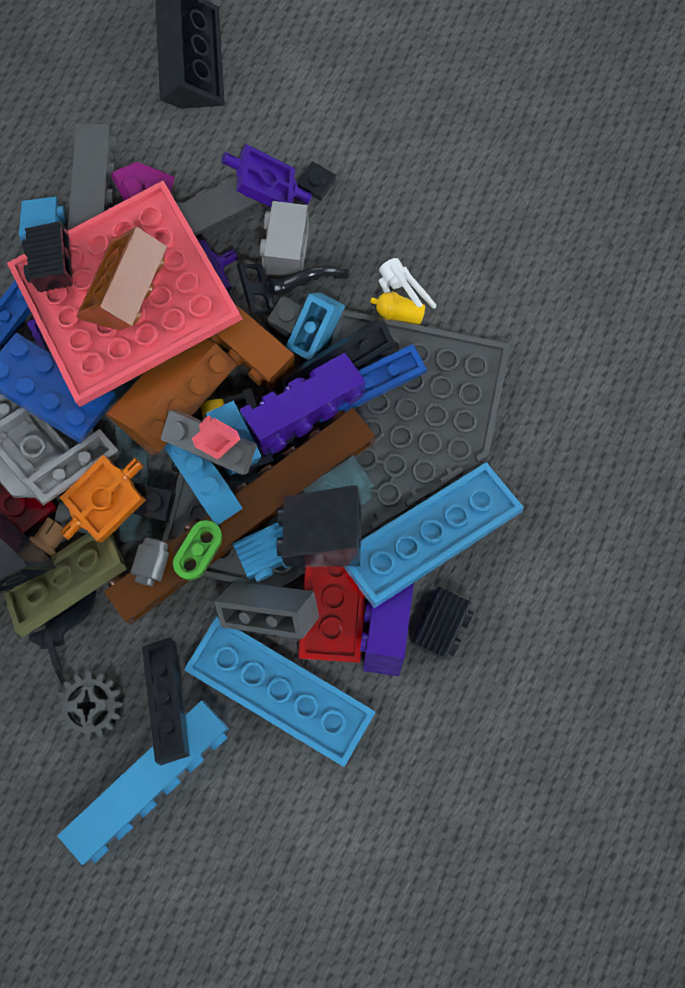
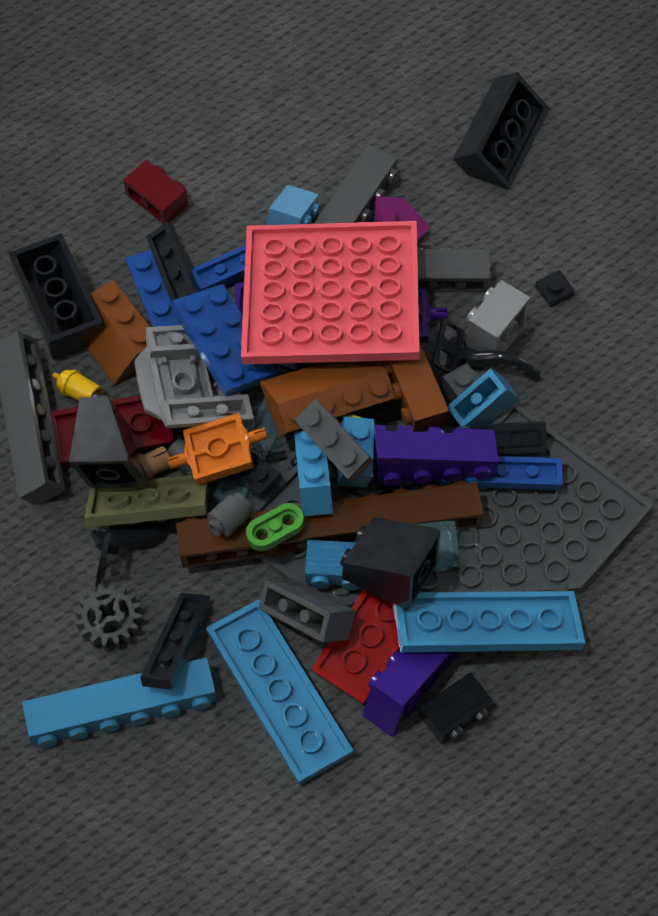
camera: 30 degrees right, 15 degrees down
(48, 256) = (284, 234): black brick -> none
(123, 280) = (336, 280): slope -> none
(215, 437) = (340, 433): coral tile -> none
(264, 177) = (508, 261): dark purple plate -> none
(397, 276) = (581, 399): white plant -> none
(398, 308) = (567, 425): yellow piece -> none

